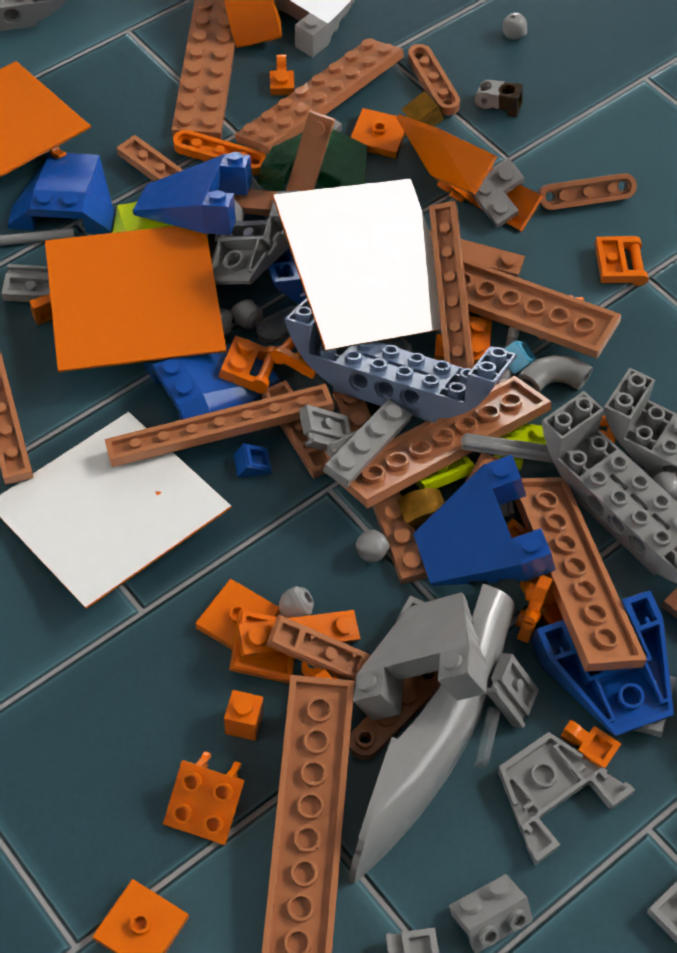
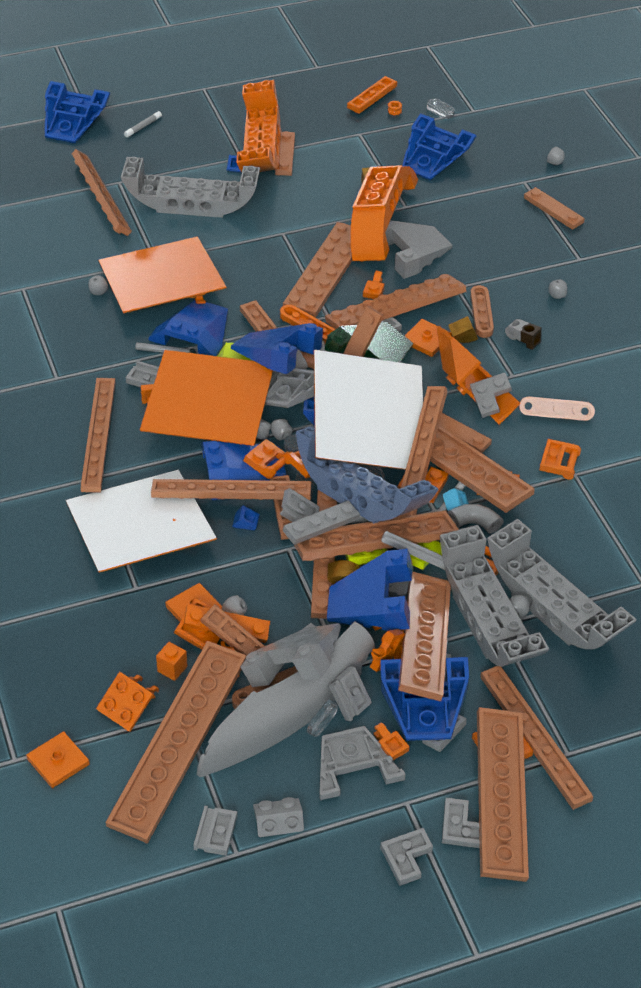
camera: 20 degrees right, 10 degrees down
(372, 546) = (299, 588): light grey piece -> none

